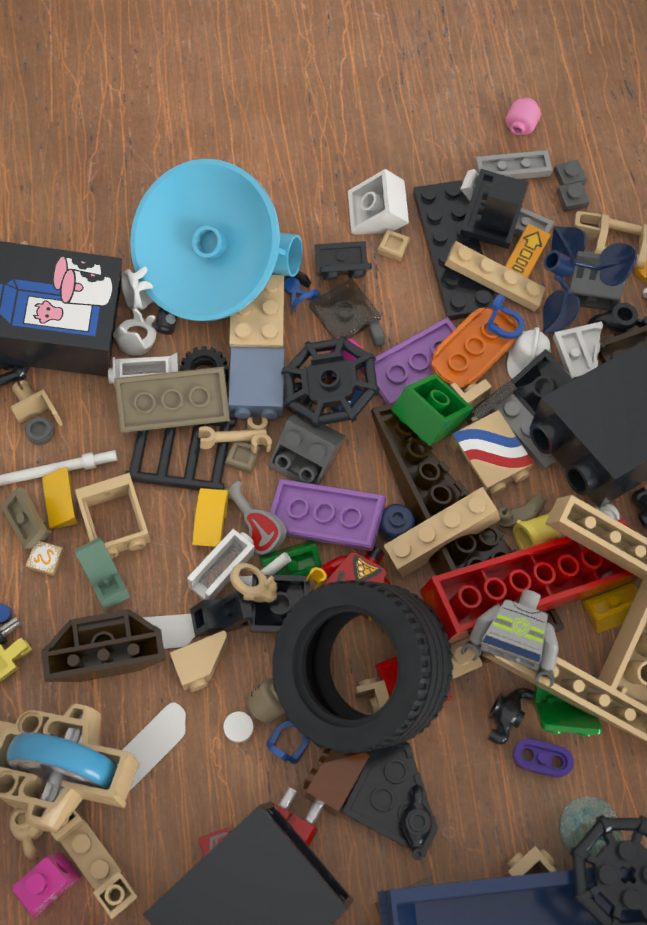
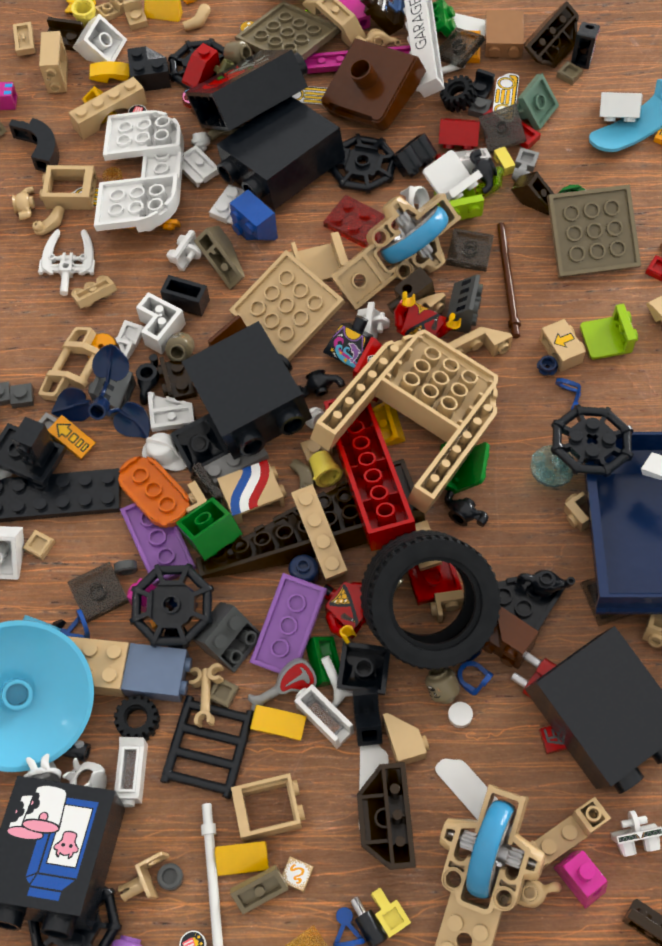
camera: 75 degrees left, 5 degrees down
(102, 573) = (324, 817): sand green bracket -> none
(171, 399) = (164, 746): dark tan tile -> none
(263, 592) = (356, 675): tan piece -> none
(341, 258) = (50, 587): black bracket -> none
(495, 276) = (90, 465): tan plate -> none
(497, 304) = (124, 461): blue piece -> none
(517, 634) = (421, 478): light grey torso -> none
(542, 758) = (499, 493): dark purple plate -> none

